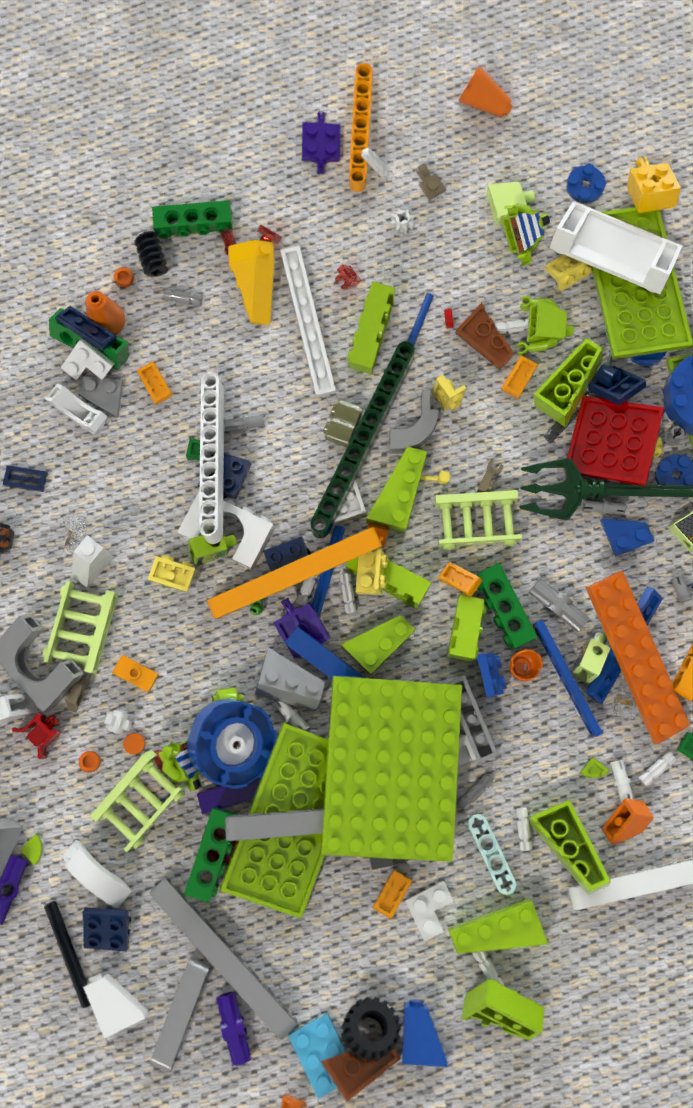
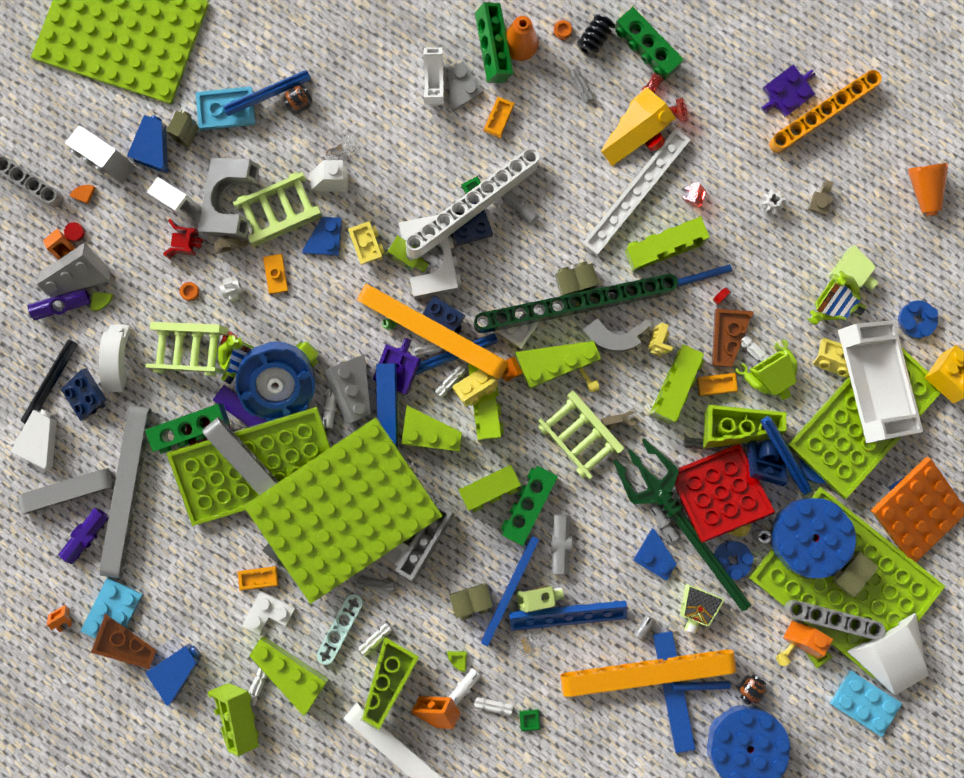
camera: 50 degrees right, 5 degrees up
(42, 481) = (362, 95): dark blue tile -> none
(86, 328) = (498, 34): dark blue tile -> none
(87, 356) = (479, 52): white plate -> none
(134, 743) = (225, 313): orange tile -> none
(138, 606) = (325, 238): none -> blue wing
(279, 274) = (655, 142): none -> red tile
(375, 162) = (803, 144): white axle -> none
(384, 1016) = (168, 639): black tyre -> none
(460, 579) = (523, 456): light orange plate -> none
(489, 670) = (467, 531): blue plate -> none
(496, 408) = (677, 384): none -> lime wedge
(532, 660) = (490, 547): orange hair -> none
(551, 718) = (471, 601): none -> olive brick
(622, 364) = (786, 455): none -> blue axle
(638, 657) = (564, 631): orange plate -> none

